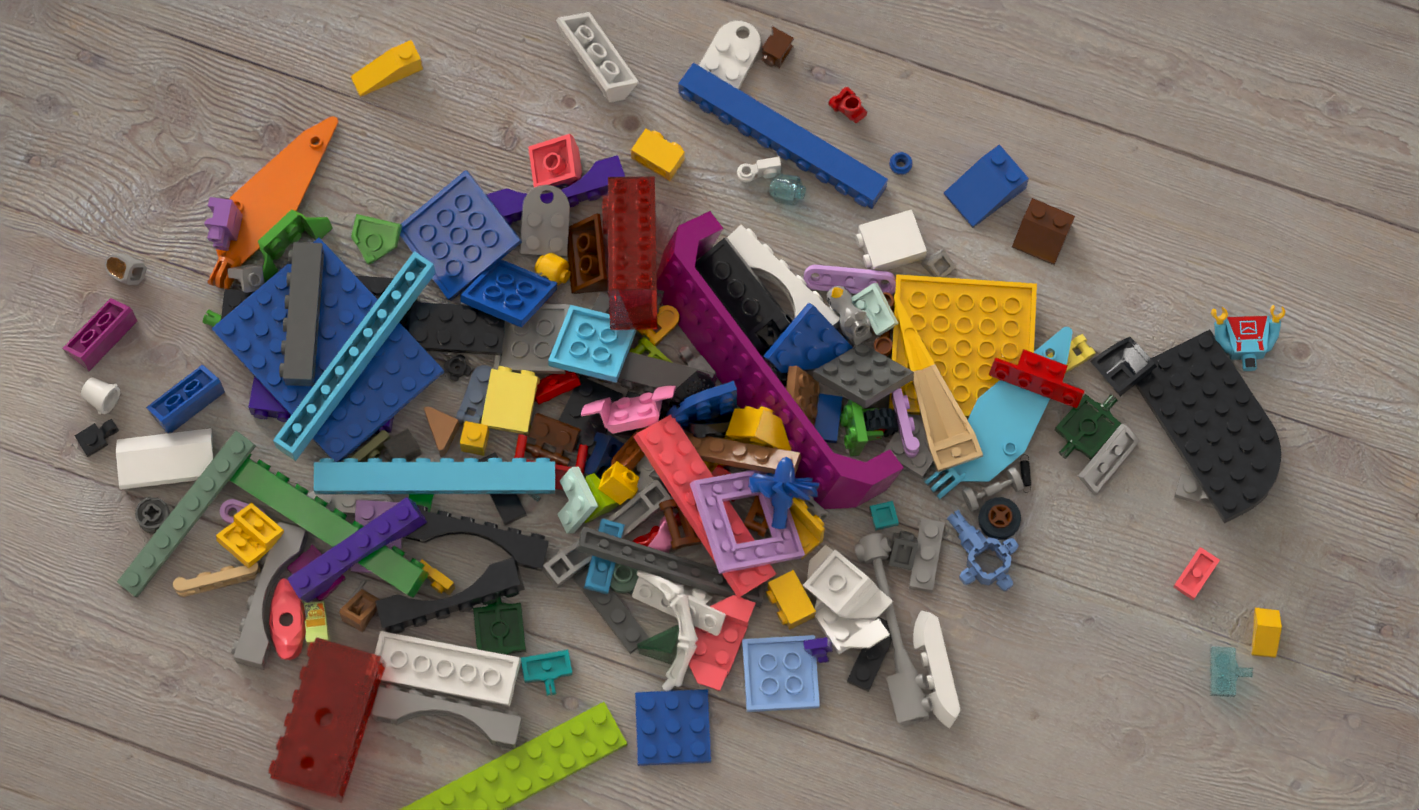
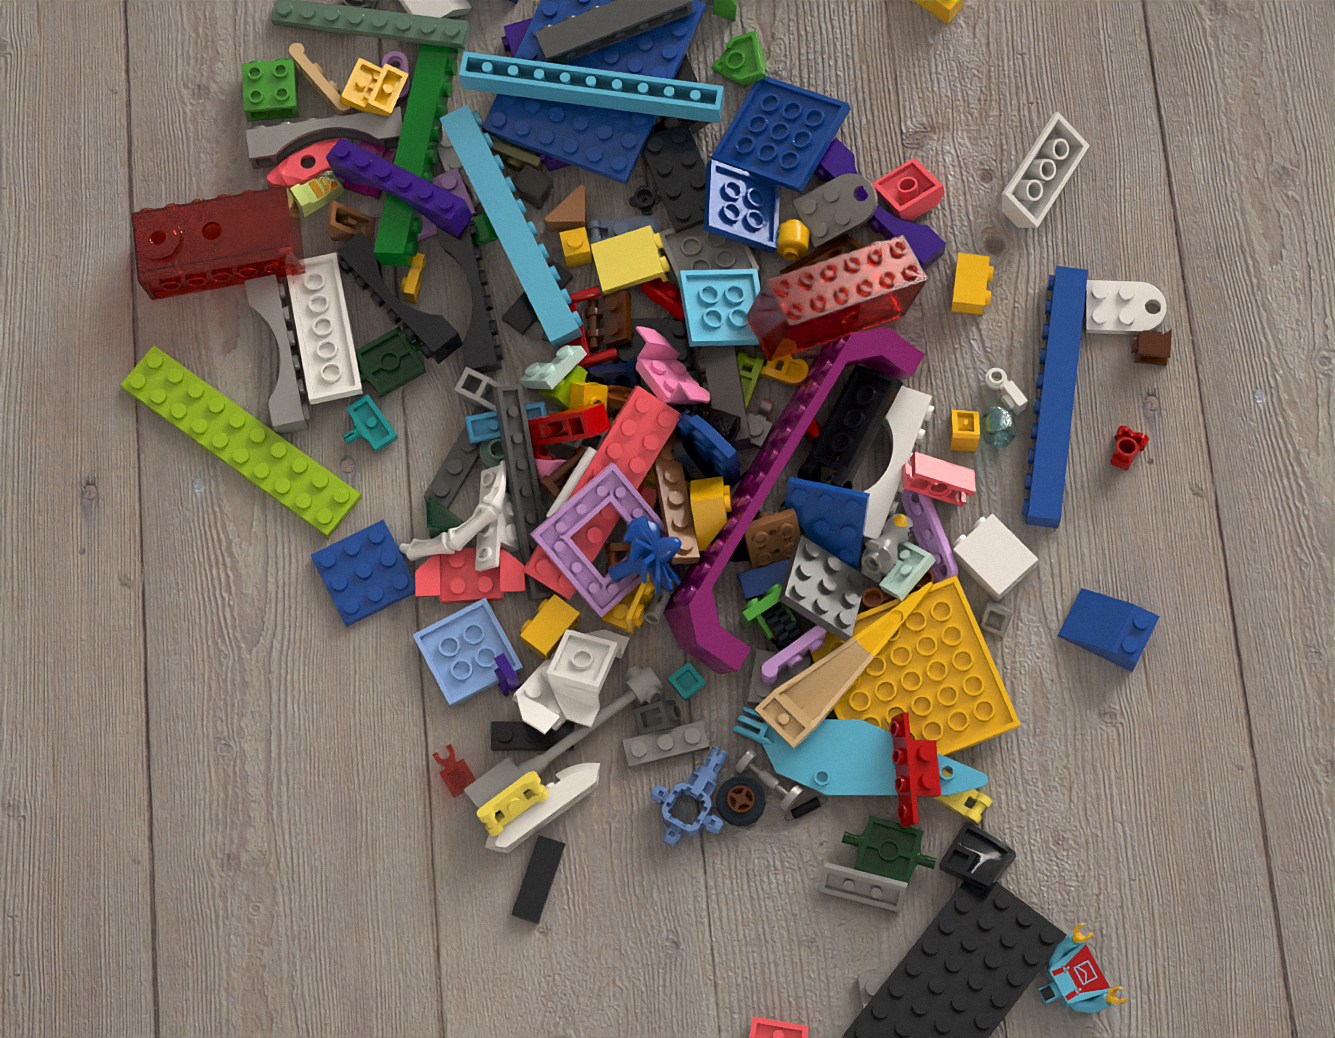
camera: 70 degrees right, 0 degrees up
(201, 622) = (270, 89): none -> bright green brick
(638, 503) = (569, 425): none -> red slope
(689, 524) = (573, 480): none -> white bar
(776, 215) = (964, 430): none -> yellow slope
(812, 251) = (938, 479): none -> coral piece
(879, 726) = (456, 774): none -> clear red plate
(900, 157) = (1093, 522): blue plate -> none
(929, 687) = (512, 802): none -> light yellow plate
(992, 699) = (538, 879): none -> black tile
(1043, 231) = (1088, 708): reddish brown slope -> none

